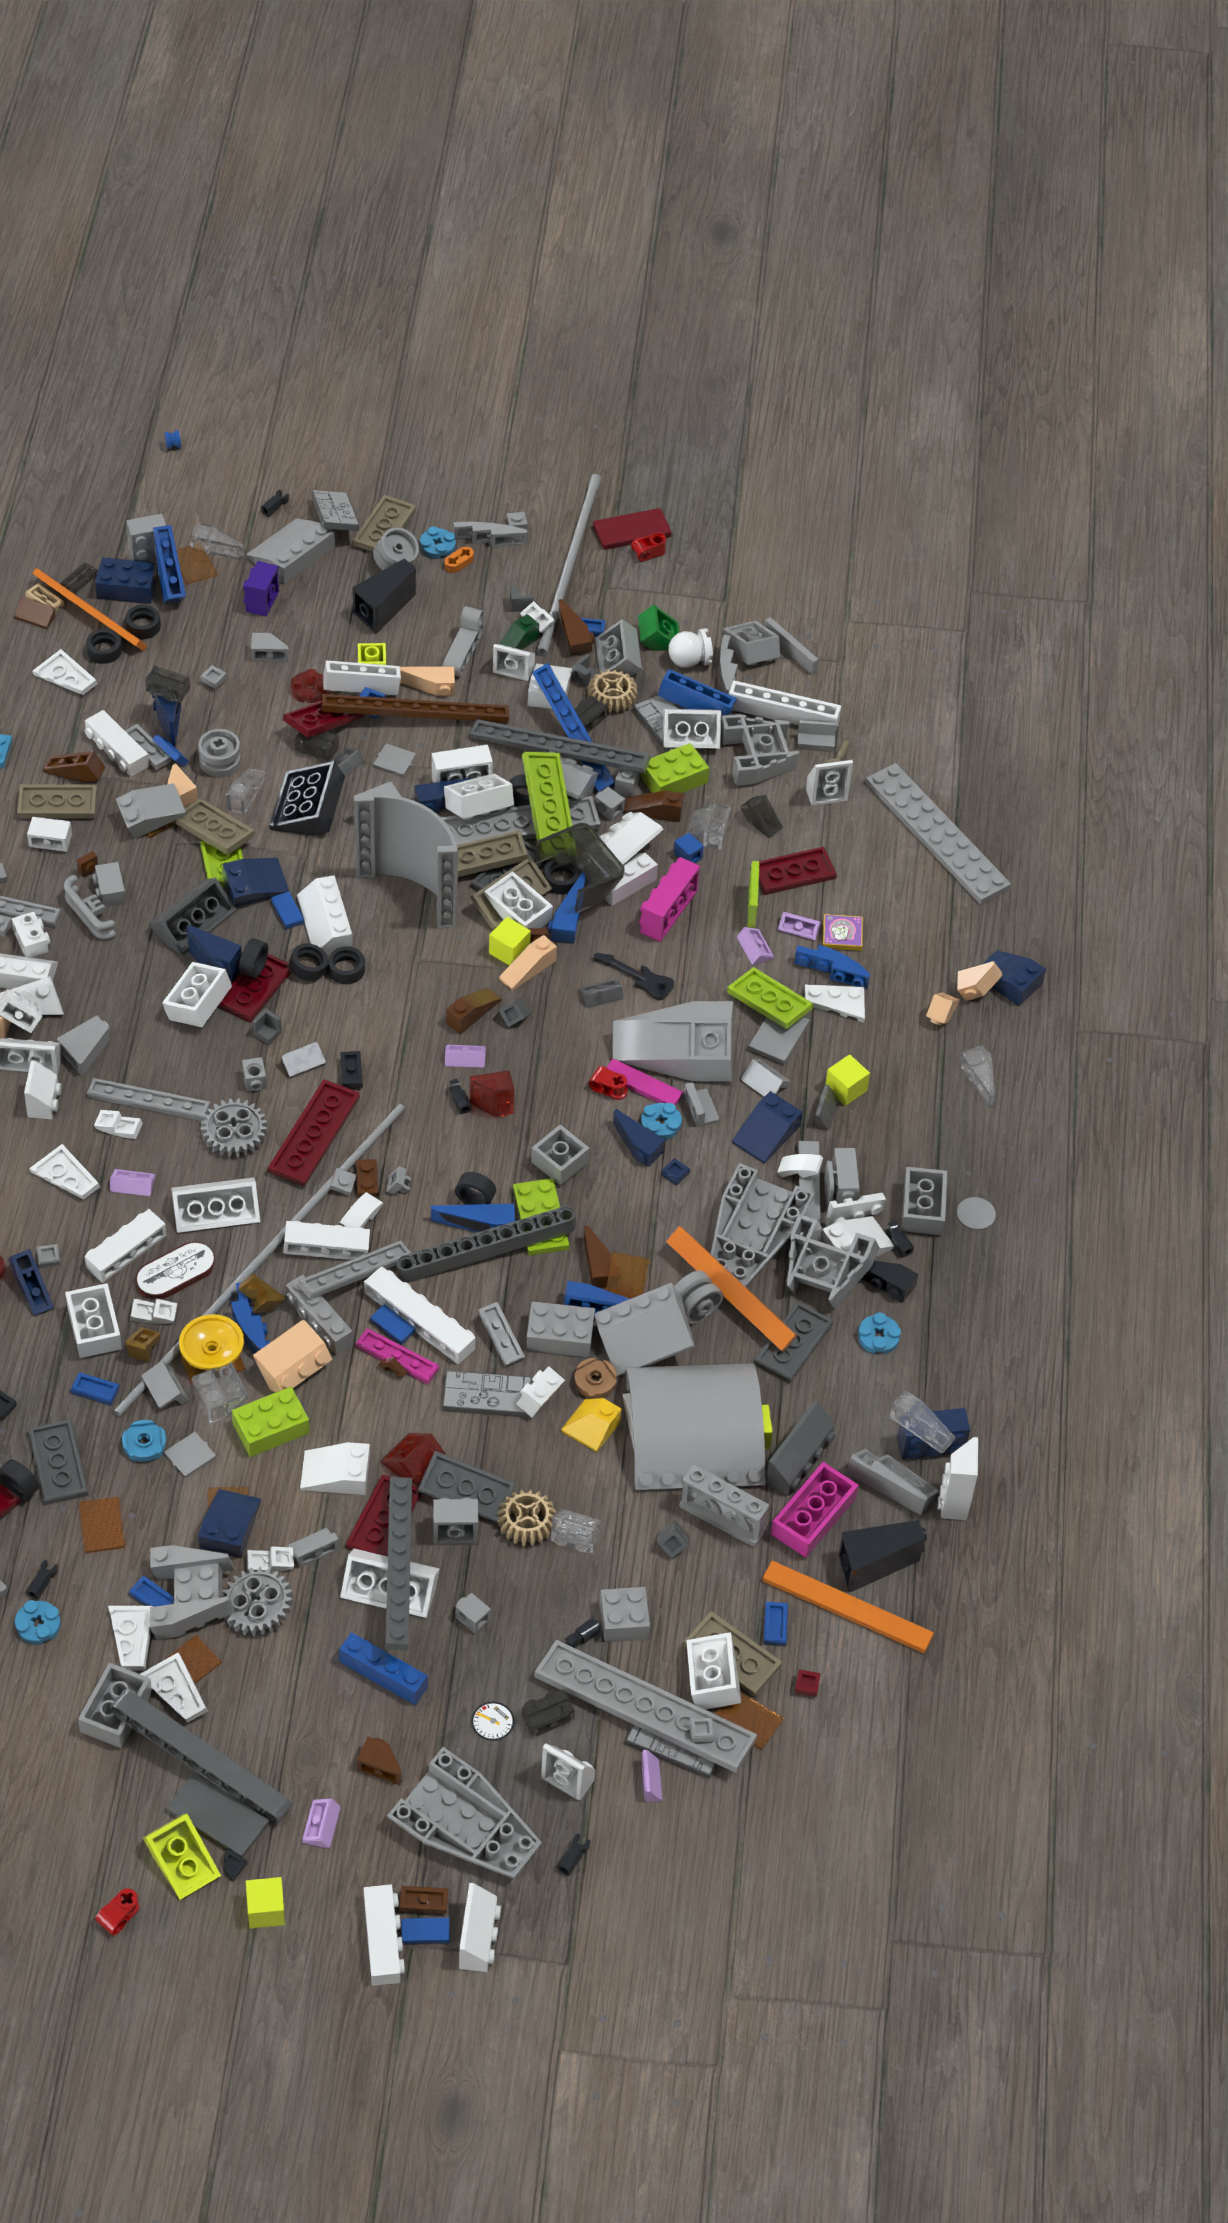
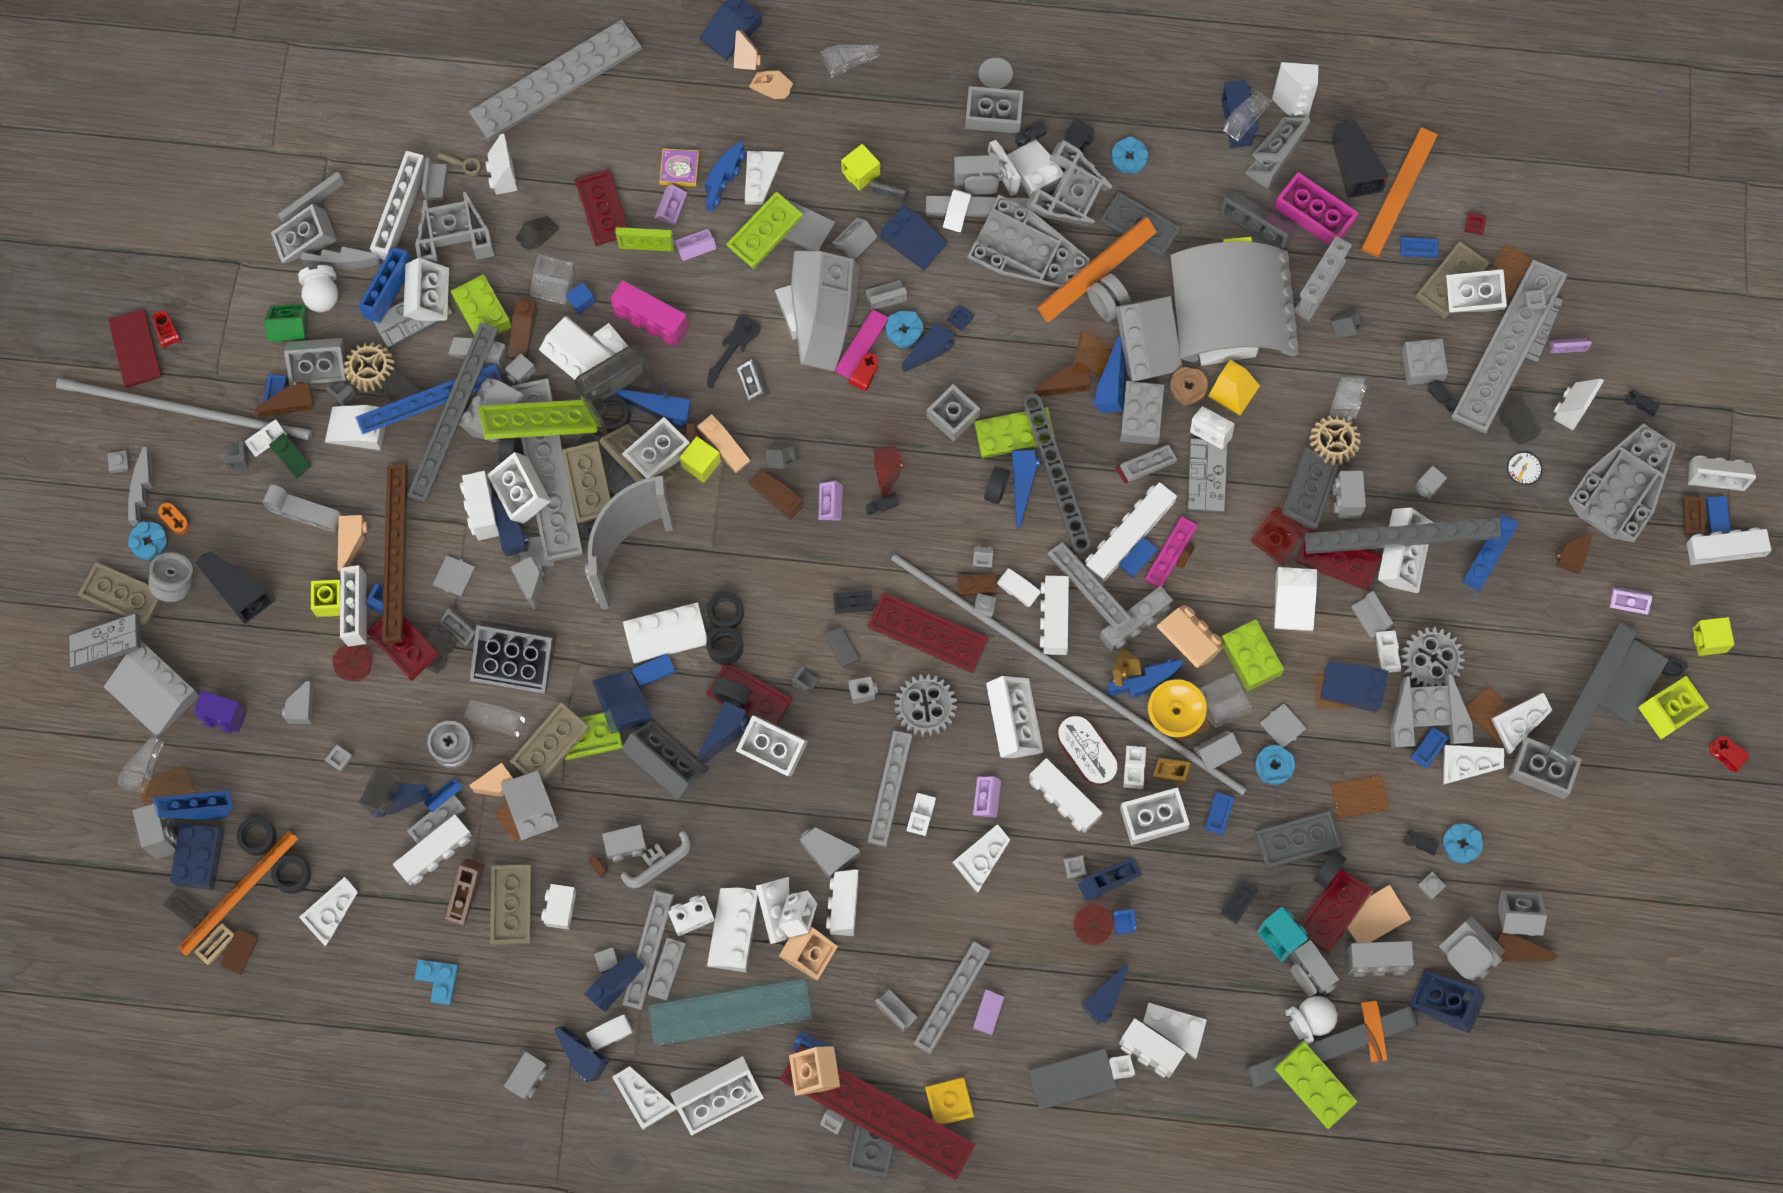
camera: 85 degrees left, 20 degrees up
(41, 1092) = (892, 885): white slope -> none
(274, 503) = (81, 710): black bar -> none
(513, 662) = (327, 459): white slope -> none

